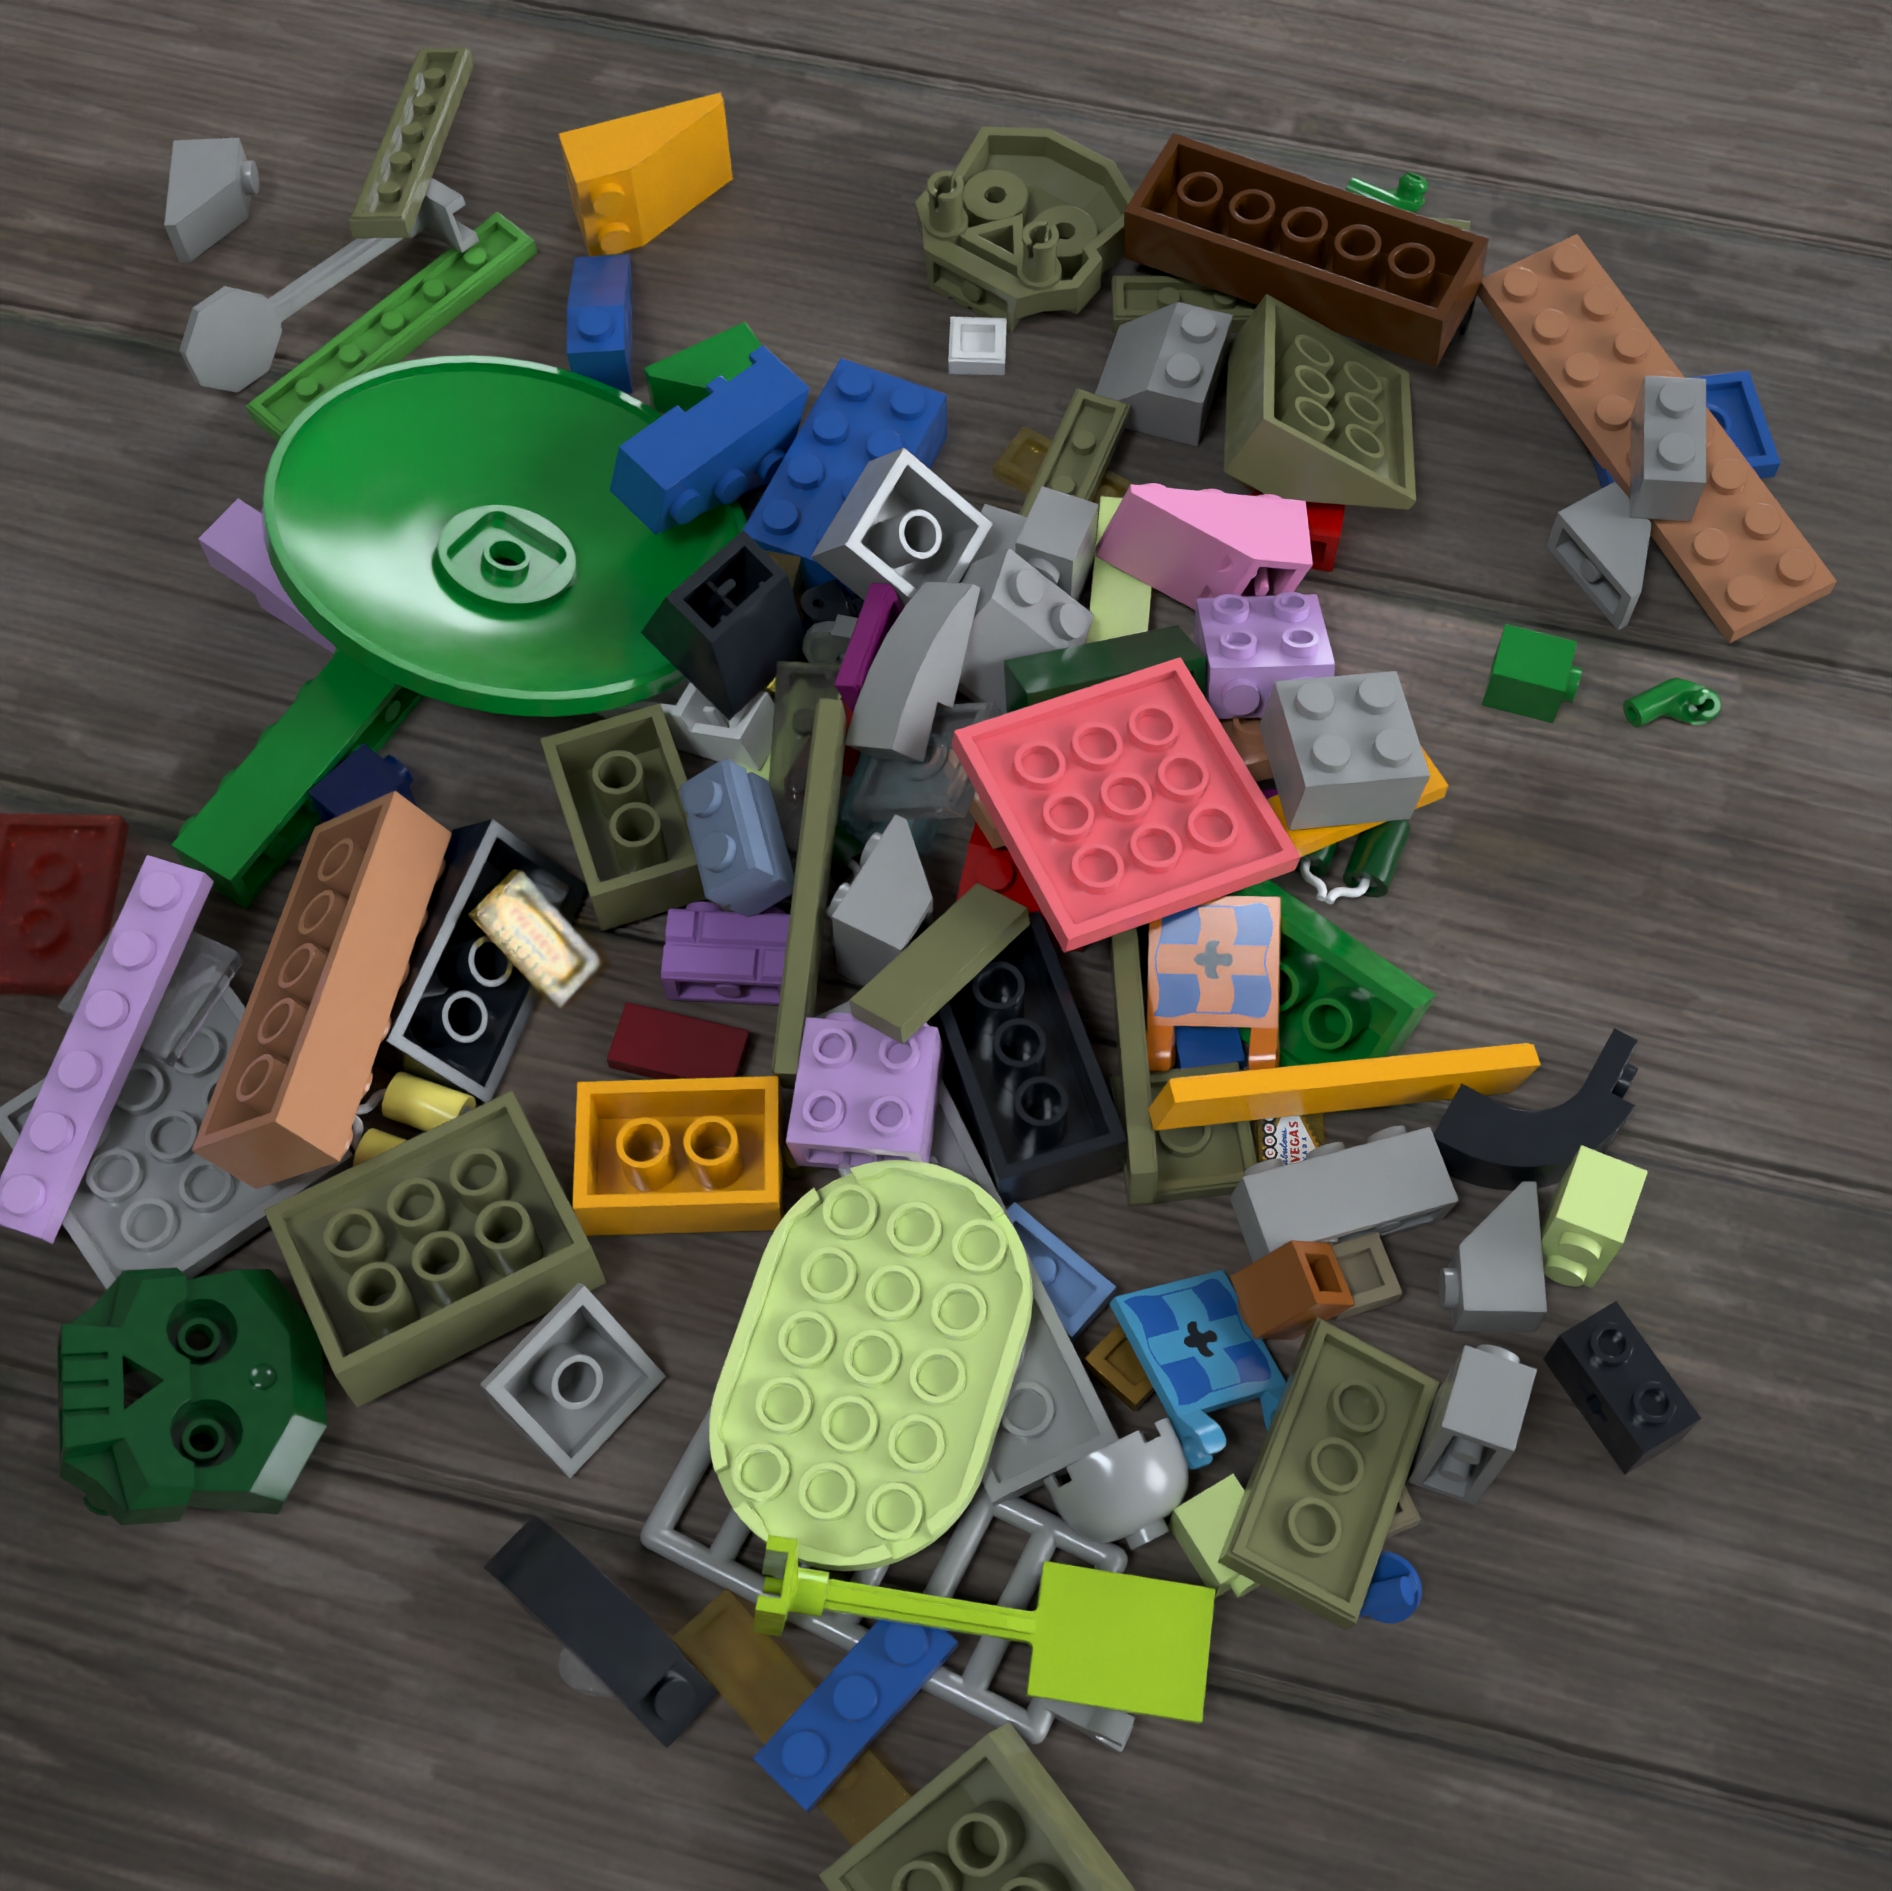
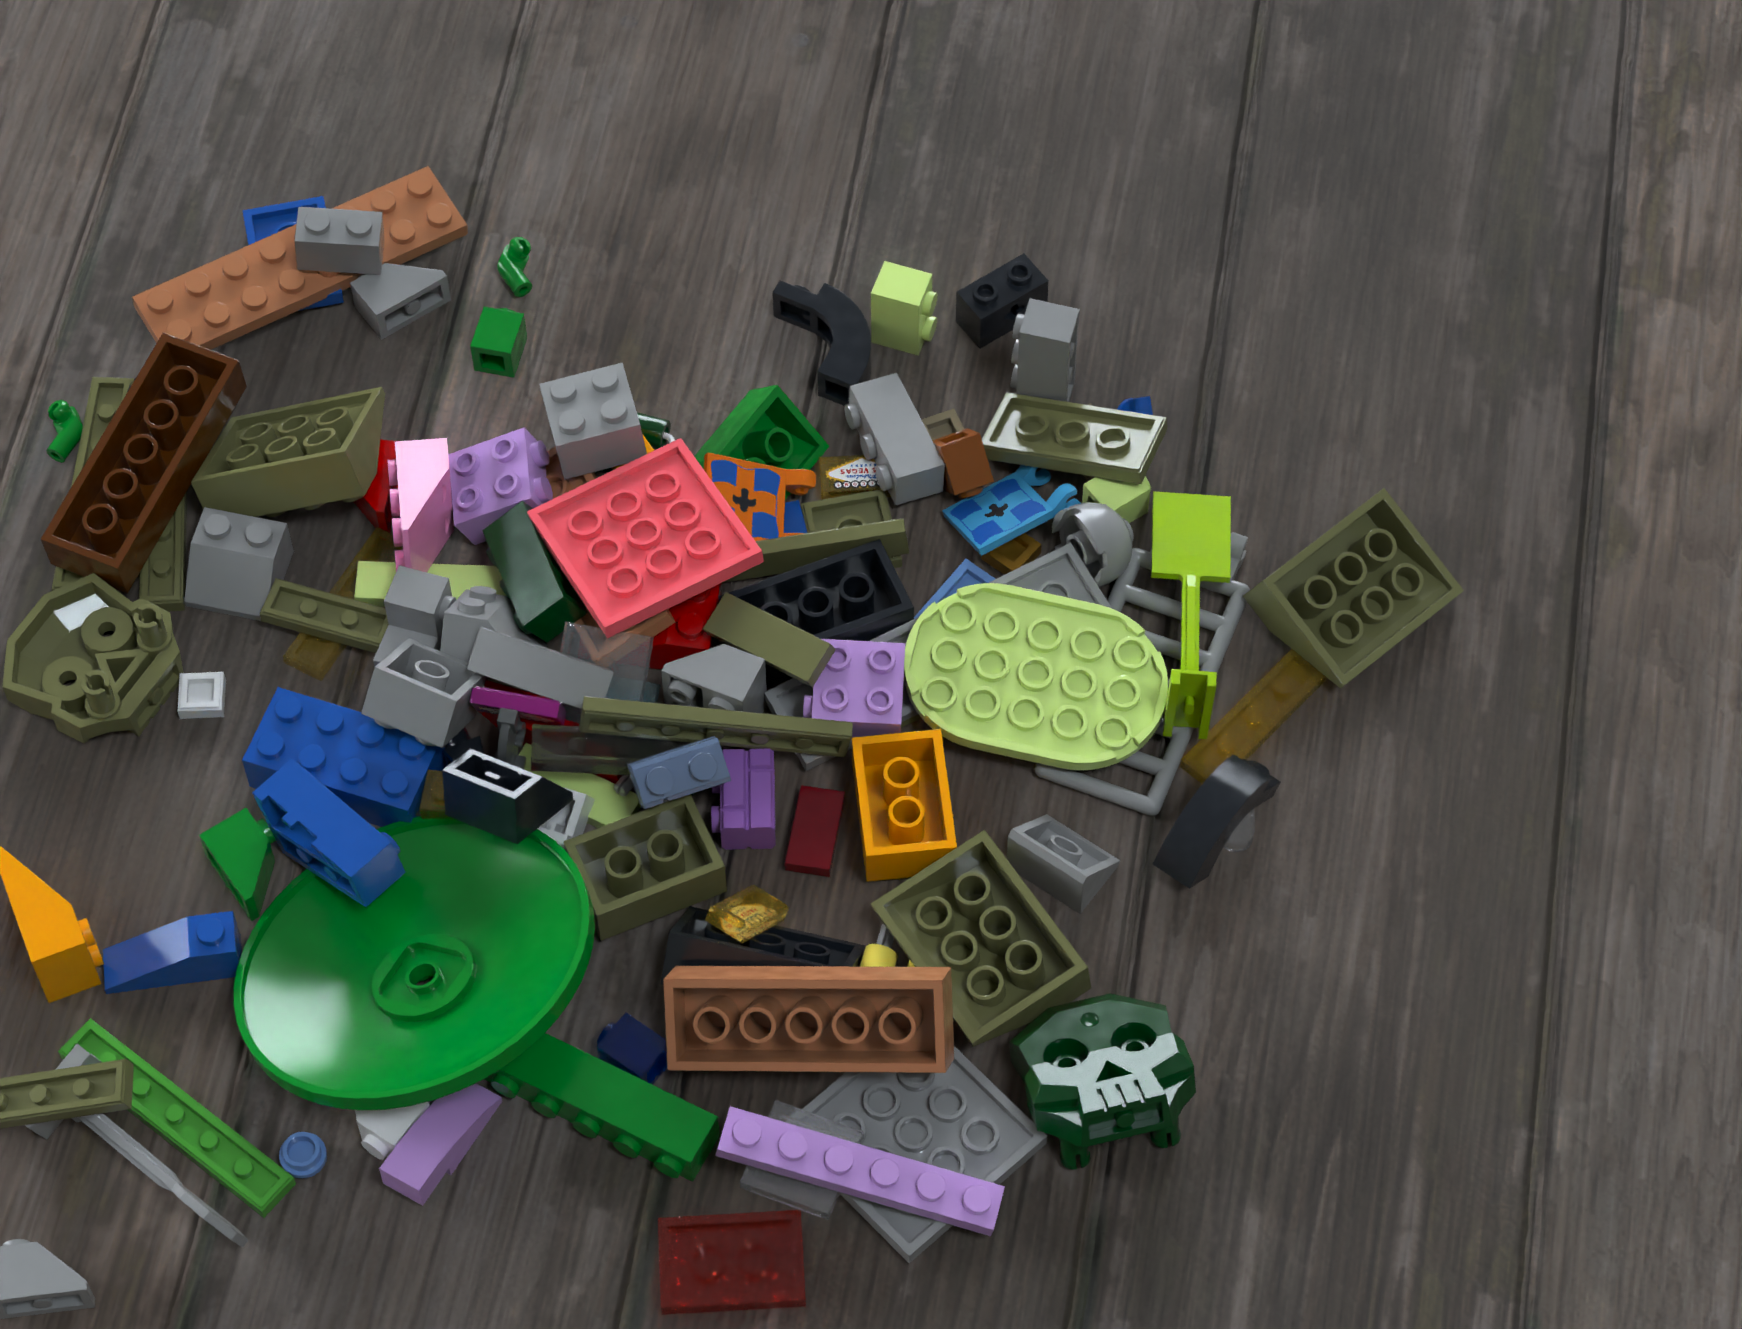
camera: 95 degrees left, 5 degrees down
(852, 1708) = (1249, 678): blue plate -> none
(1340, 1085) = (829, 429): light orange tile -> none
(1499, 1270) = (928, 360): light grey slope -> none

